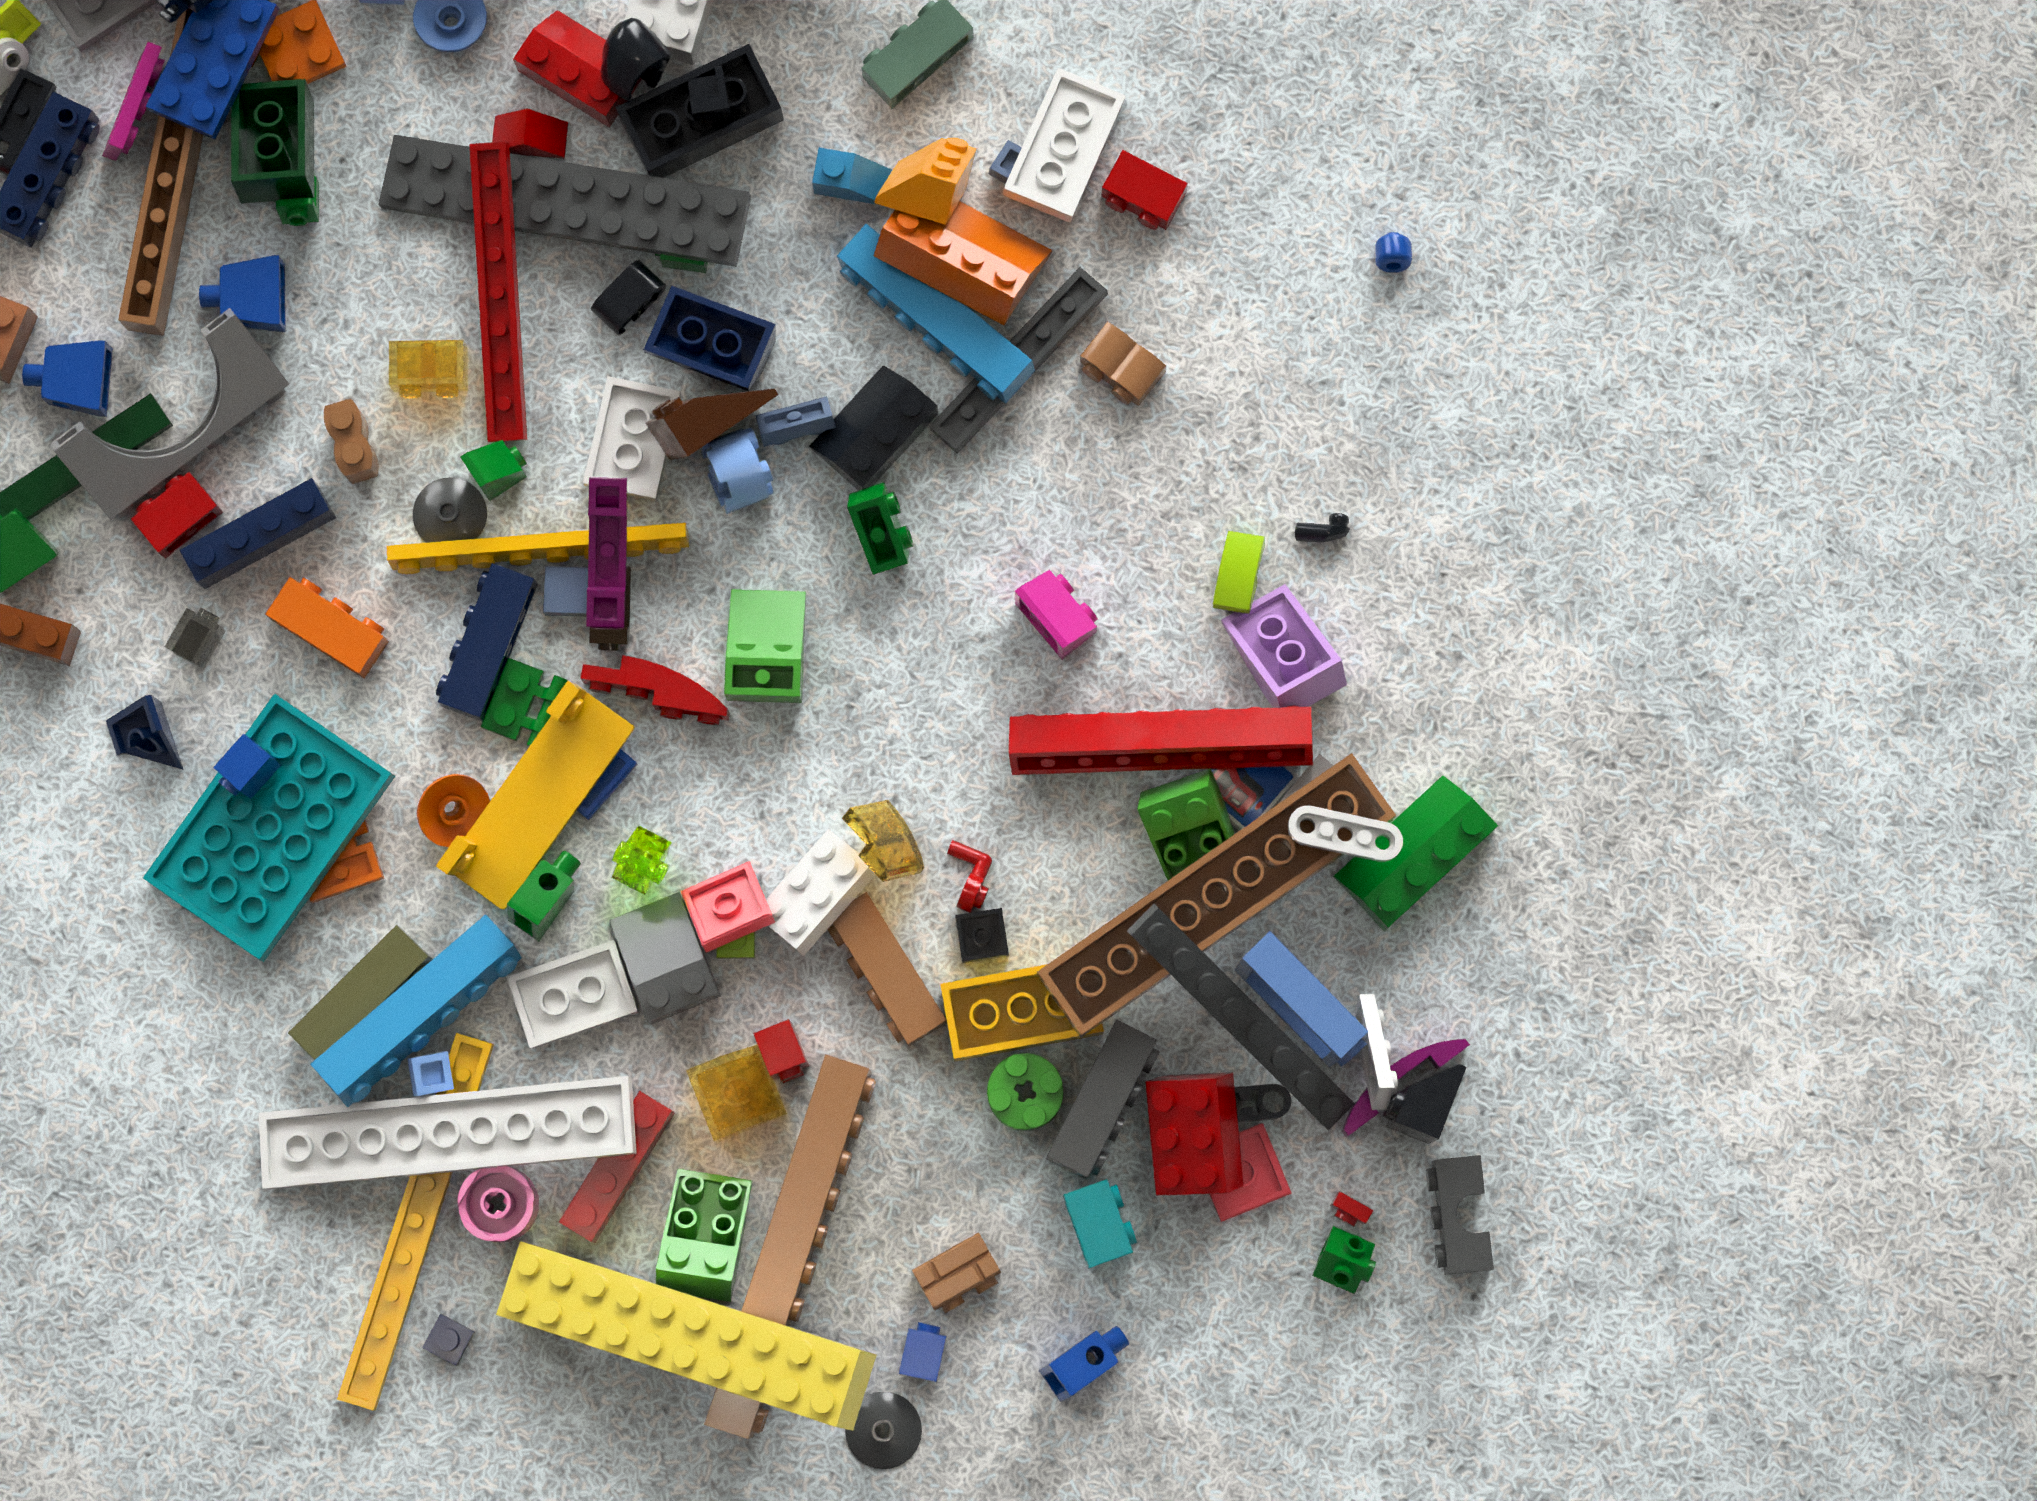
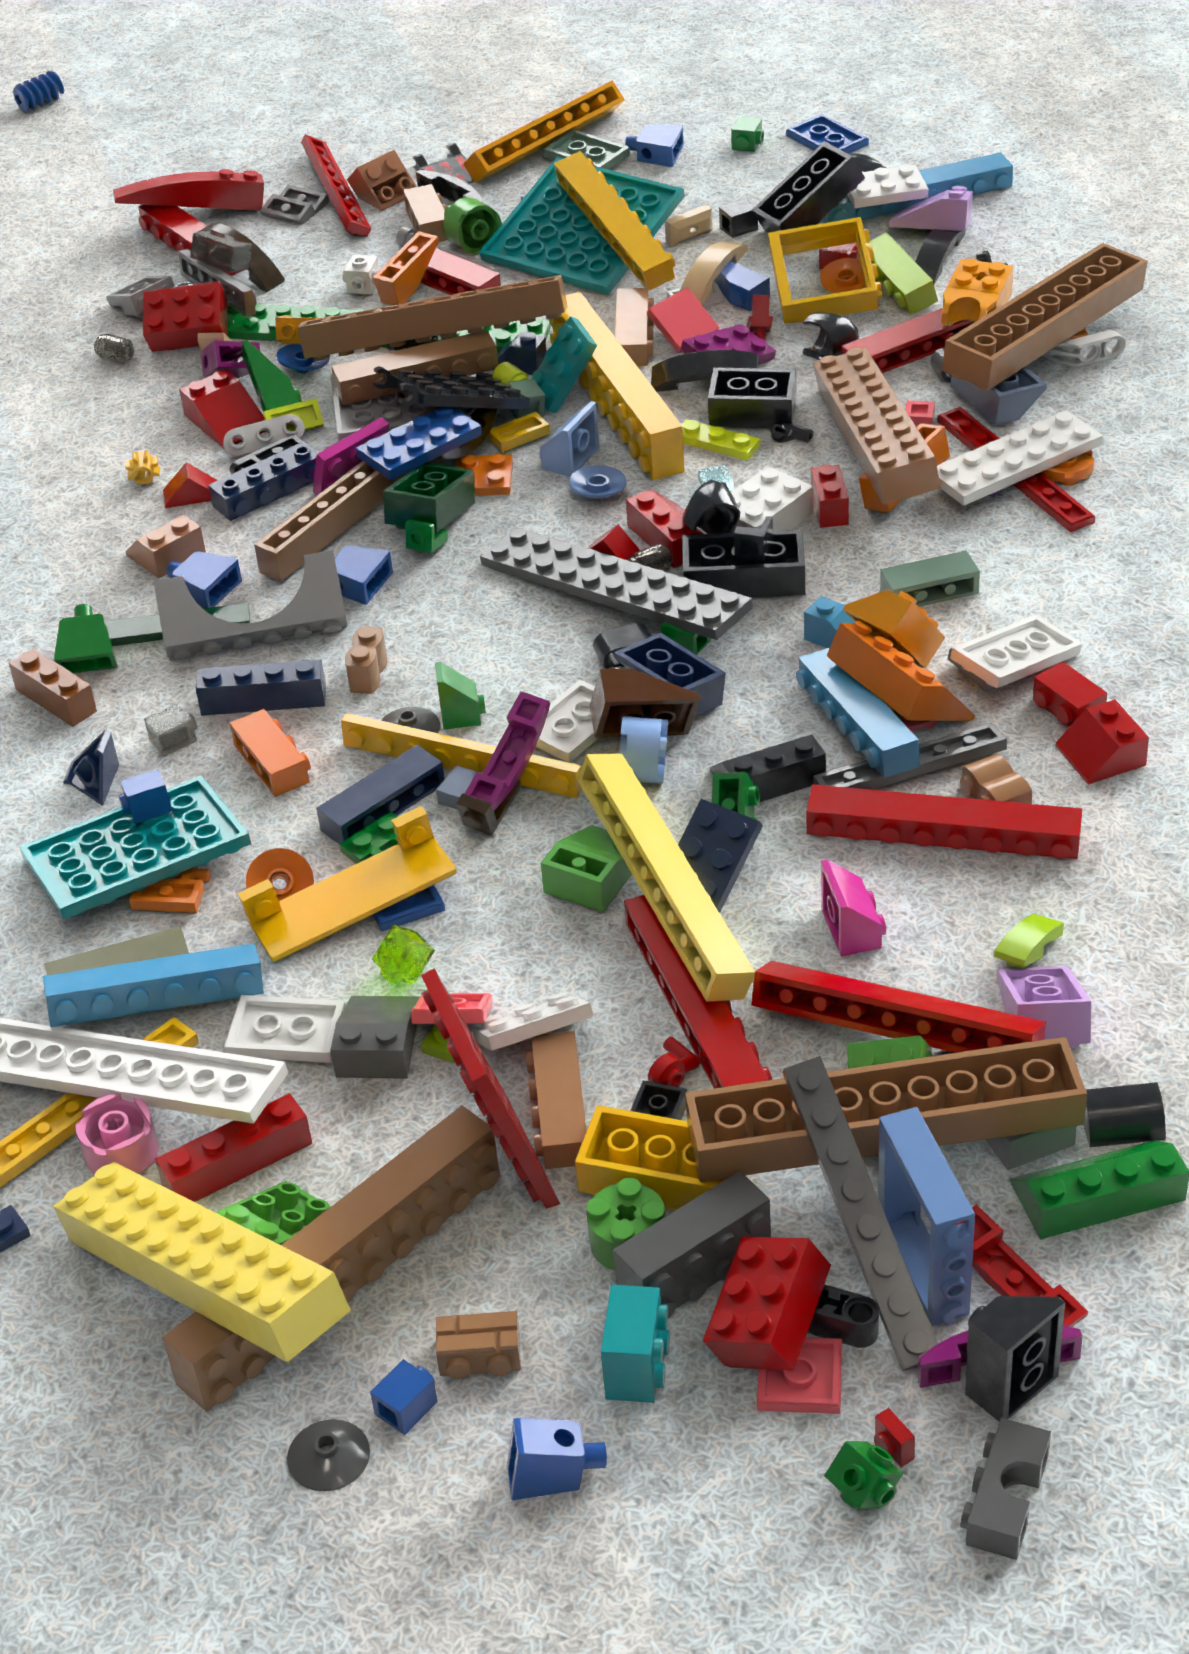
camera: 30 degrees right, 40 degrees down
(176, 514) = (209, 654): red brick -> none
(428, 367) = (452, 640): clear yellow brick -> none
(430, 1073) = (131, 1022): light blue plate -> none
(498, 291) = (530, 608): red plate -> none
(535, 908) = (306, 950): green torso -> none
(585, 140) = (654, 557): none -> clear smoke brick
(672, 690) = (498, 860): red slope -> none
(736, 1093) = (366, 1134): clear yellow slope -> none
(782, 1051) = (426, 1101): red brick -> none
(795, 421) = (693, 746): sand blue plate -> none
(856, 658) = (666, 878): none -> light yellow brick
(856, 1050) = (487, 1091): none -> red plate
(883, 600) = (717, 847): none -> dark blue plate
(888, 840) = (613, 1002): clear yellow slope -> none
(953, 787) = (709, 1025): none -> red brick
(1090, 439) = (944, 821): none -> red brick
(1205, 253) = (1104, 743): none -> red slope
(1322, 533) = (1125, 940): black arm -> none
(1363, 832) = (1017, 1074): white plate -> none
(1376, 1054) = (985, 1291): white plate -> none
(1392, 994) = (1009, 1272): none -> red slope
(1409, 764) = (1124, 1115): none -> black brick

